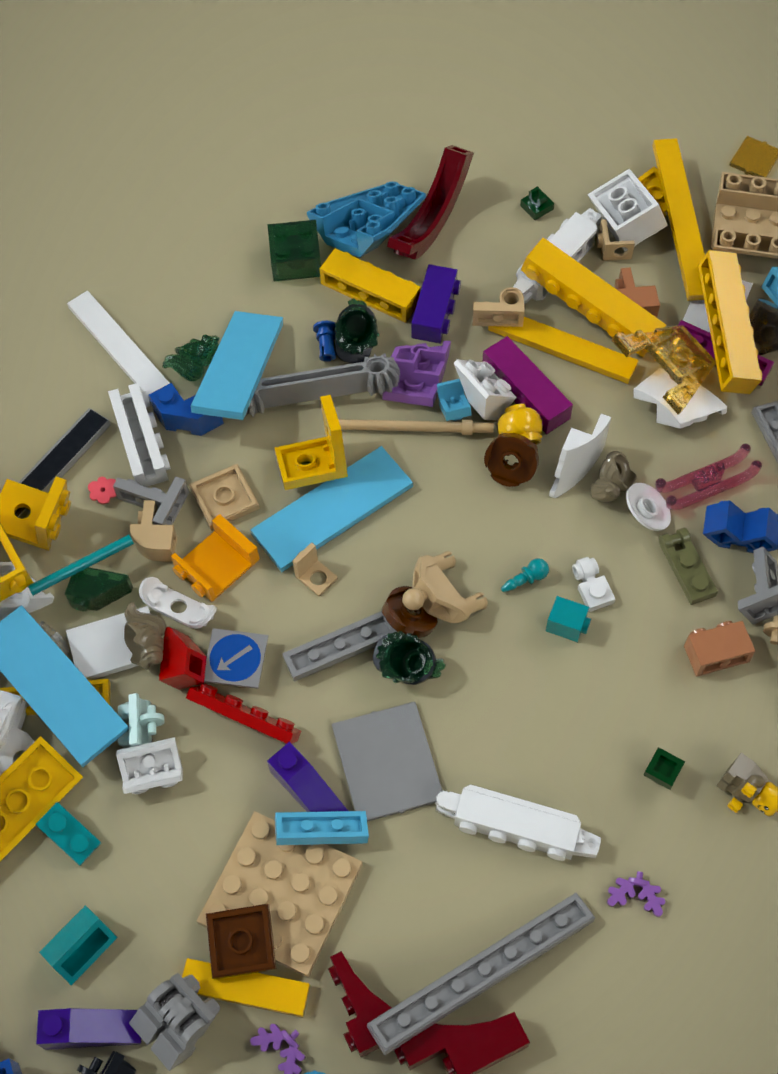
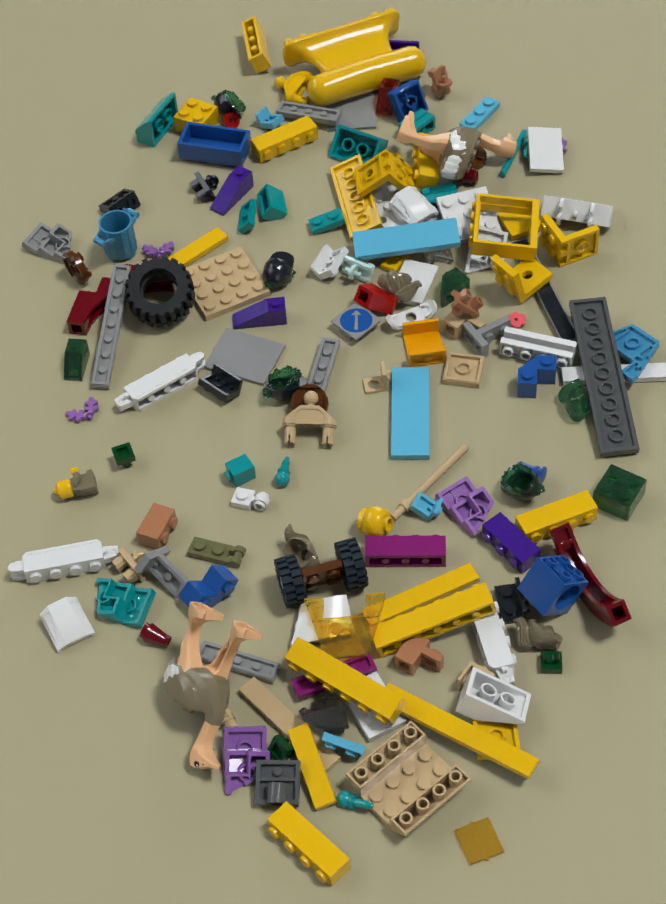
camera: 130 degrees right, 10 degrees down
(69, 348) = (636, 348): none -> dark azure wing
(80, 565) = (466, 269): teal bar -> none
(129, 958) = (247, 216): none -> teal plate
(134, 348) = (603, 377): none -> dark grey plate
(138, 521) = (465, 304): none -> nougat hips
(174, 1019) = (203, 212): light grey hips -> none
(213, 823) = (278, 270): none -> black hair
(237, 365) = (544, 409): medium azure tile -> none
(241, 941) = (213, 252): reddish brown tile -> none
(252, 717) = (321, 309): red plate -> none
(321, 828) = (233, 304): medium azure plate -> none
(324, 454) = (447, 412): yellow bracket -> none
(363, 966) = (156, 270): none -> black tyre
(365, 218) = (613, 544): dark azure wedge -> none
(372, 375) = (477, 472): light grey arm -> none
(461, 743) = (221, 383): none -> black bracket
(468, 222) = (553, 585): none -> blue brick
(484, 389) = (417, 513): white slope -> none
(499, 266) = (511, 602): none -> black bracket
(505, 313) = (469, 566): tan plate -> none
(511, 444) = (351, 506): reddish brown plate -> none
(521, 220) = (536, 634): none -> dark tan hair
(573, 976) = (76, 359): none -> clear green slope
(579, 456) = (329, 531): white slope -> none
(637, 424) = (348, 567): none -> black plate
(648, 506) = (258, 549): white dish -> none
(708, 480) = (256, 597): clear pink piece -> none

